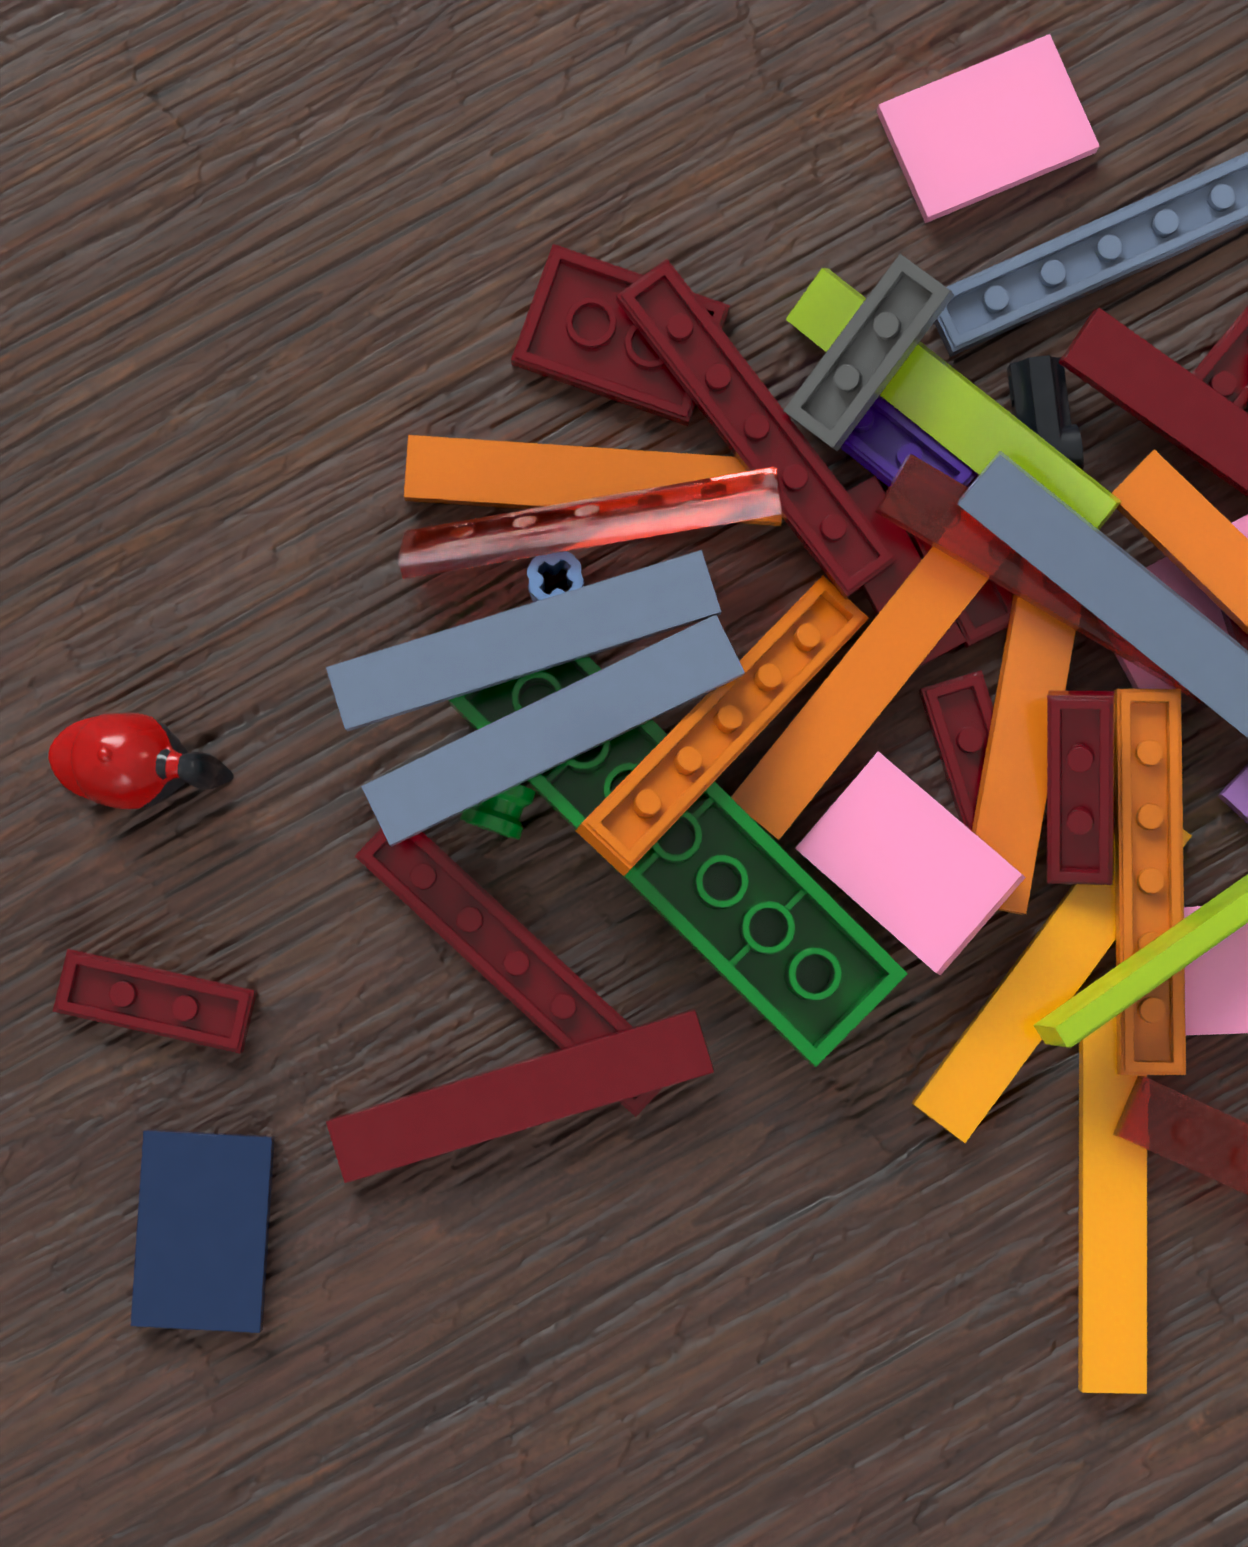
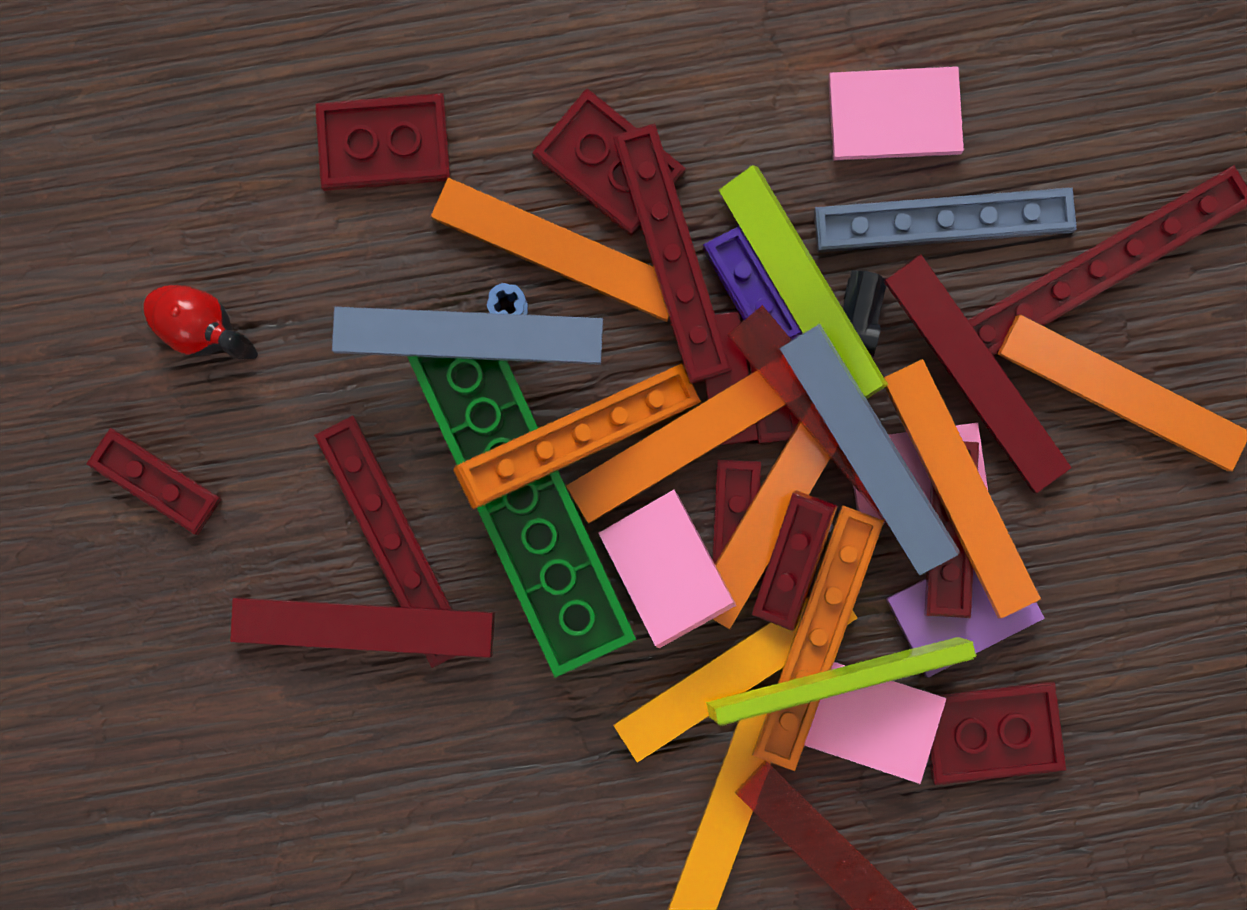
camera: 25 degrees right, 0 degrees up
(202, 1231) = (129, 639): dark blue tile -> none
(298, 418) = (382, 142): none -> dark red tile
(501, 812) = (417, 435): green wheel -> none
(553, 730) = (465, 400): sand blue tile -> none
(591, 522) = (542, 275): clear red tile -> none
(869, 352) = (760, 230): dark grey plate -> none

